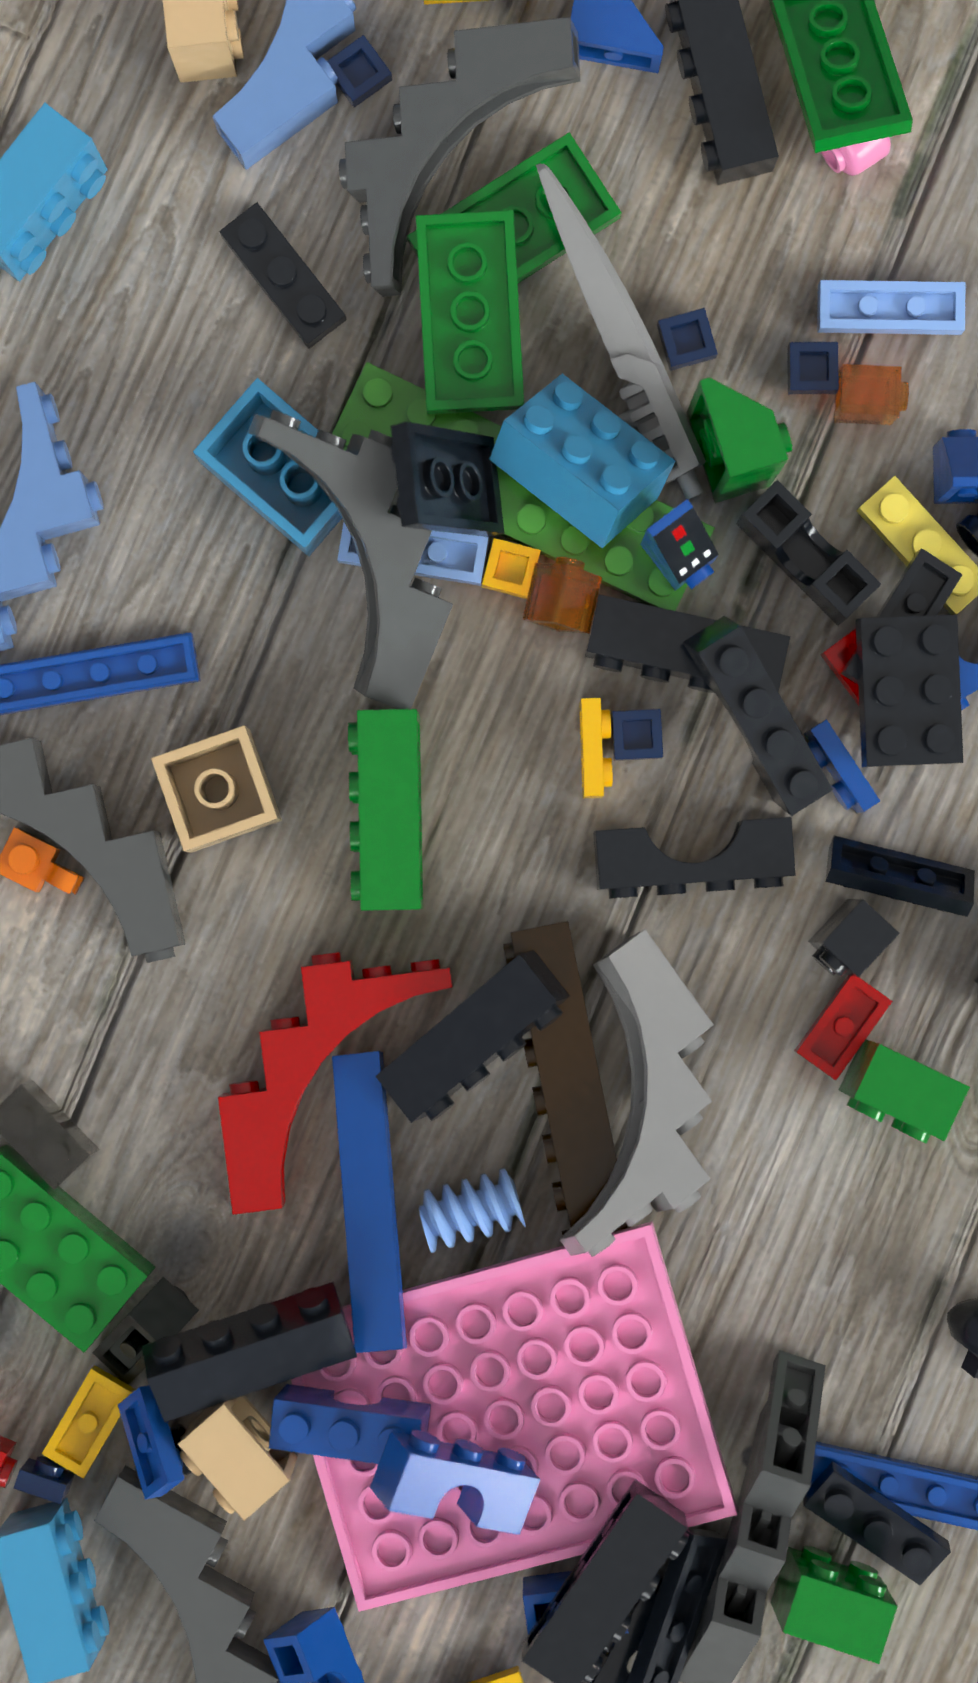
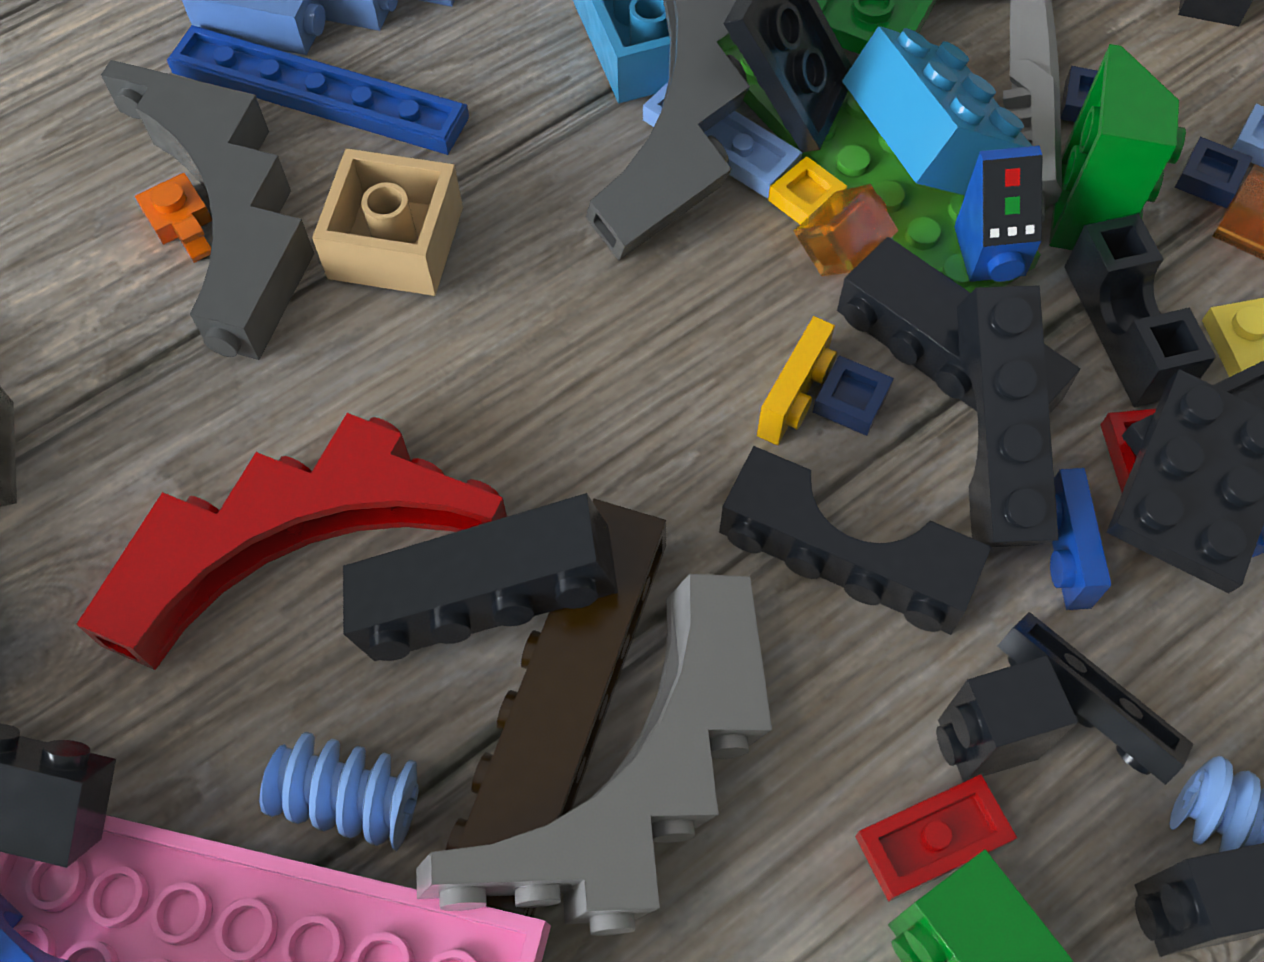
camera: 35 degrees right, 25 degrees down
(369, 1203) = (219, 726): blue tile -> none
(389, 809) = (541, 317): green brick -> none

